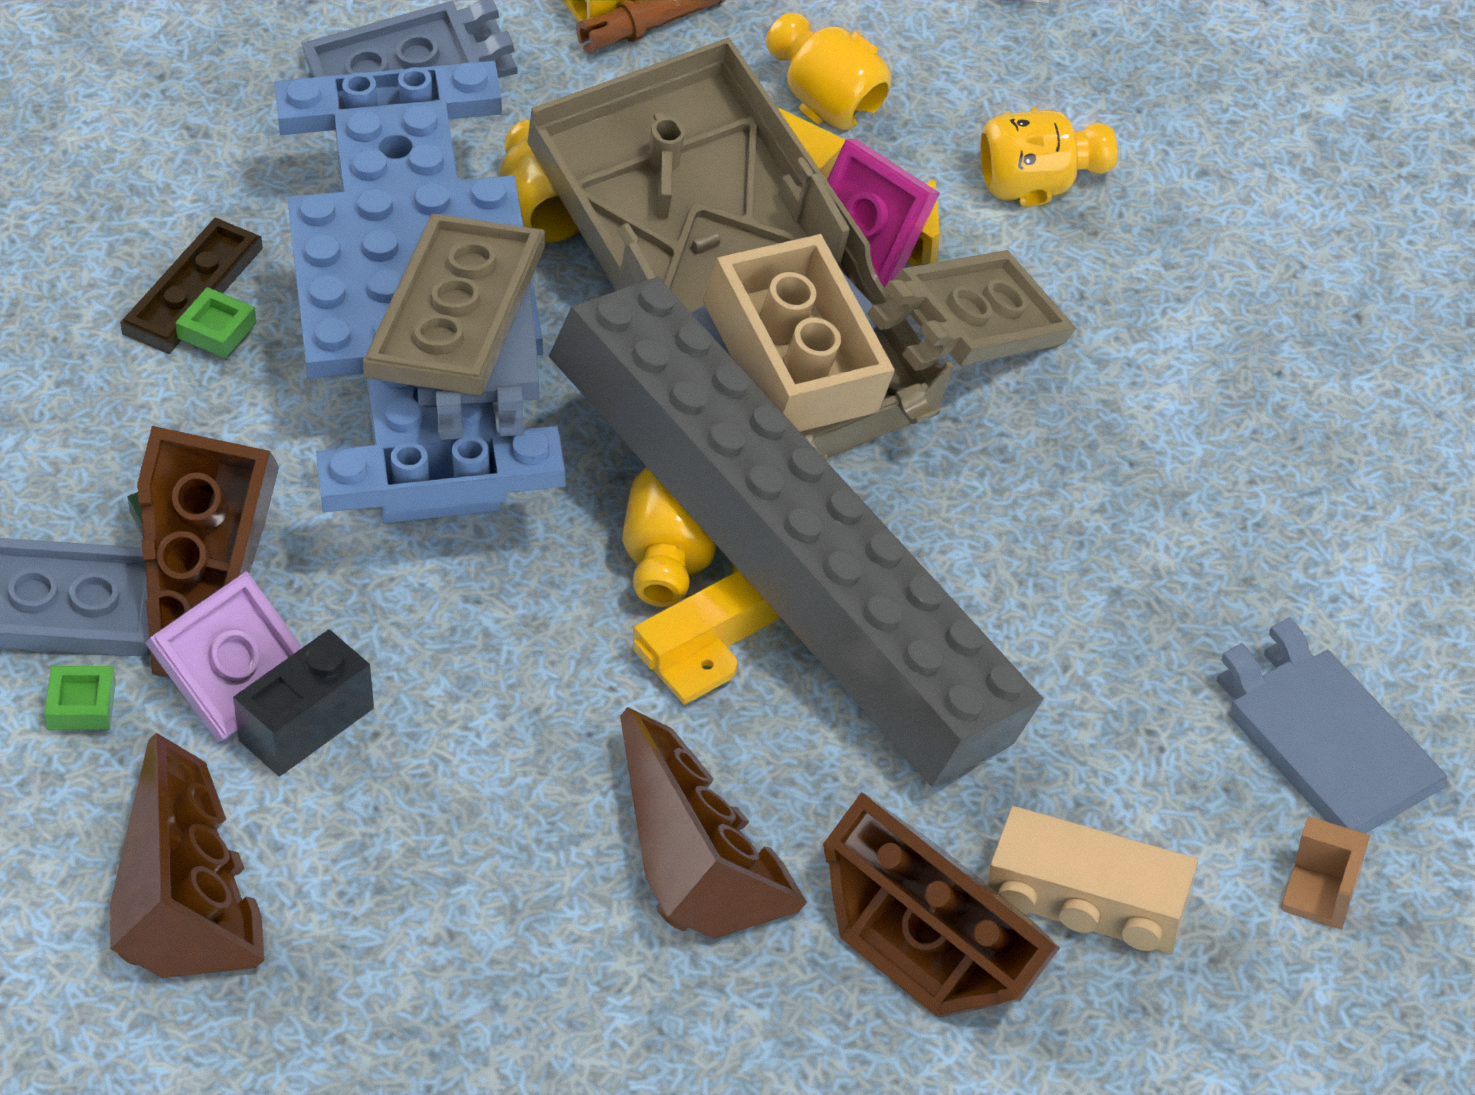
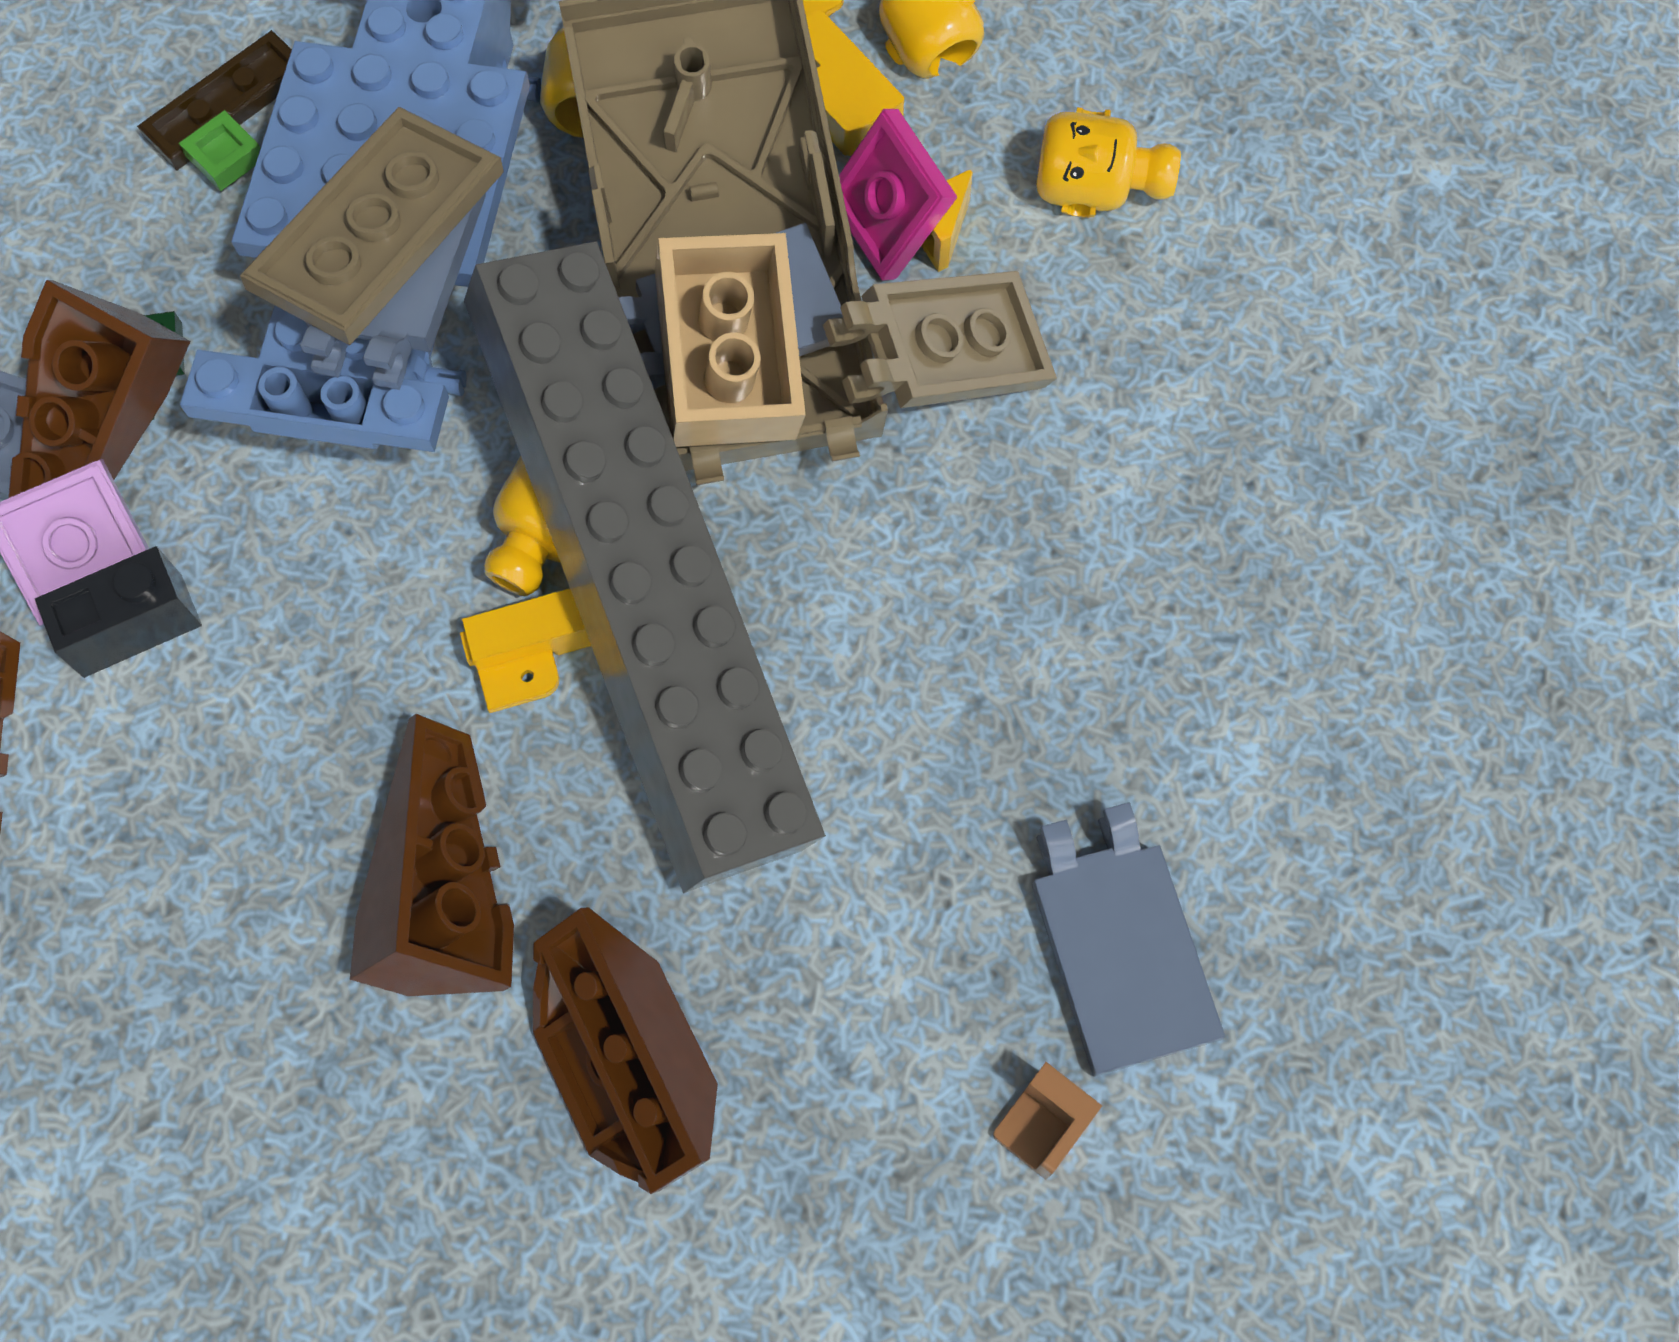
camera: 20 degrees right, 20 degrees up
(1093, 880) = (799, 1056): tan brick -> none

